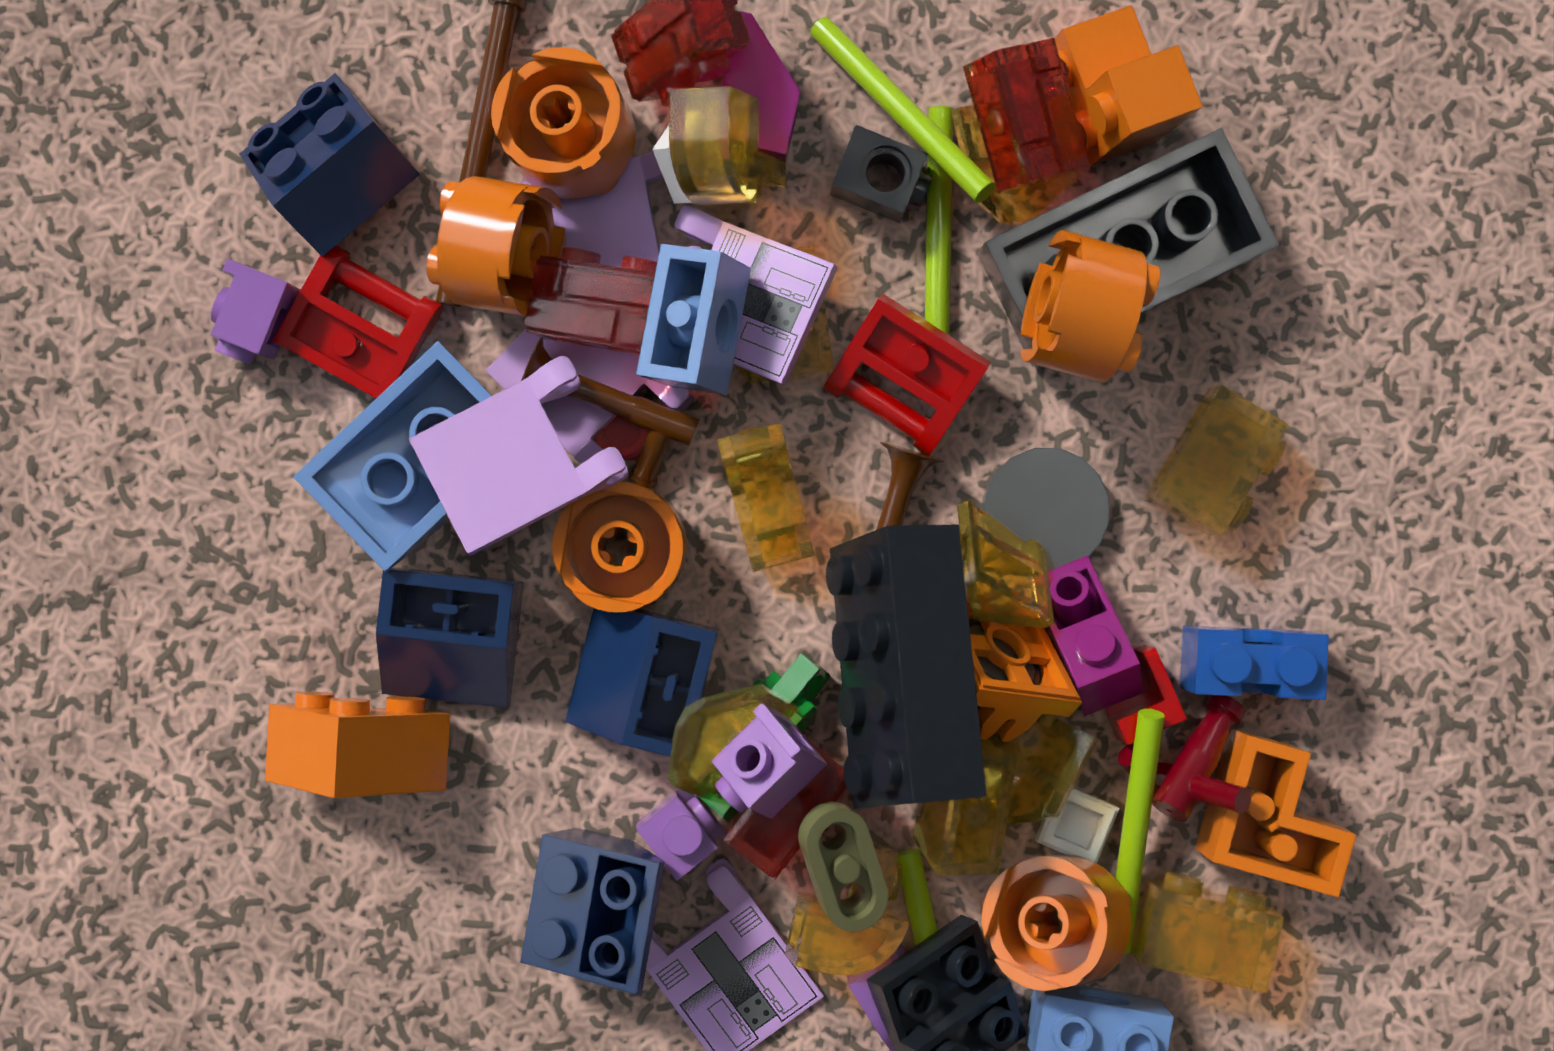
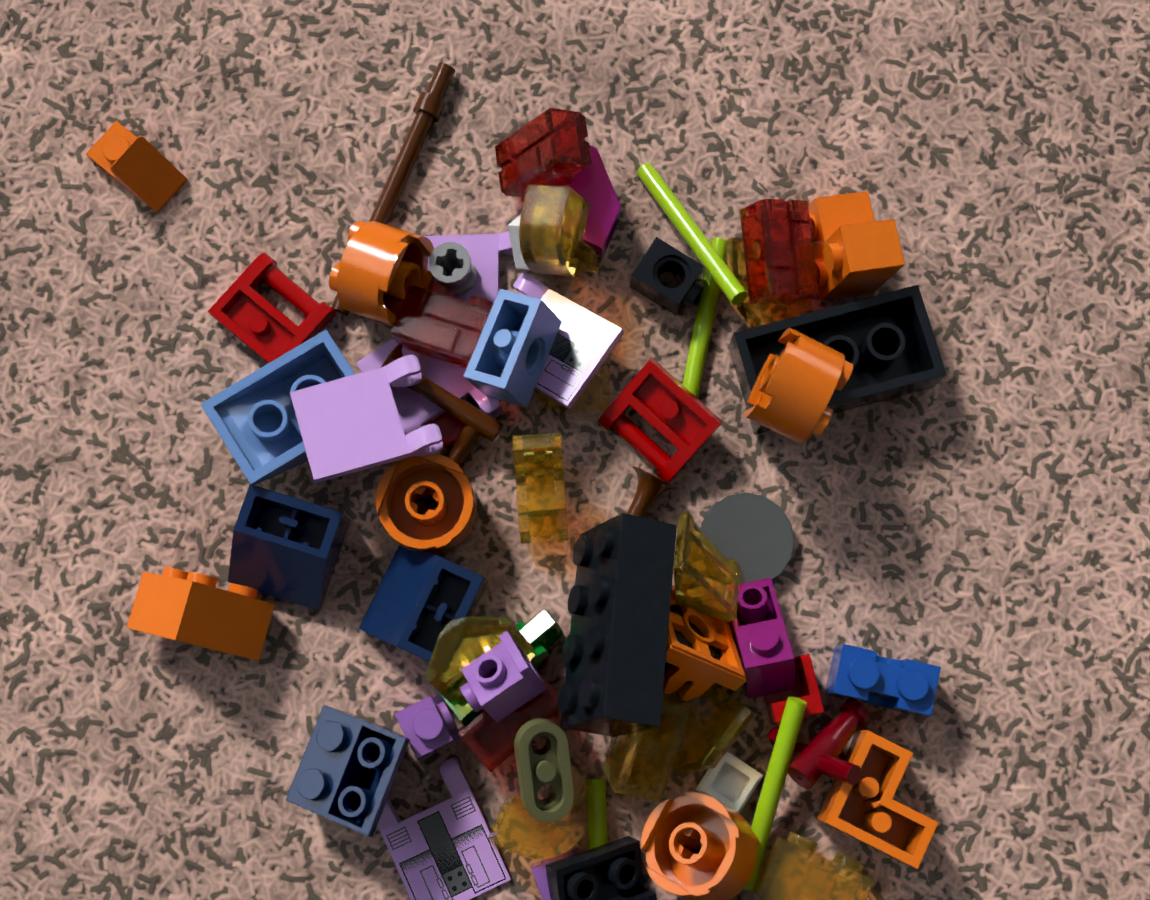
camera: 15 degrees right, 10 degrees down
(128, 154) = (137, 166): none -> orange slope
(250, 313) = (196, 289): medium lavender brick -> none
(327, 164) = (275, 197): dark blue slope -> none
(564, 123) = (449, 196): orange brick -> none
(576, 206) = (444, 258): none -> light grey bush
(1218, 462) = (879, 527): clear yellow brick -> none

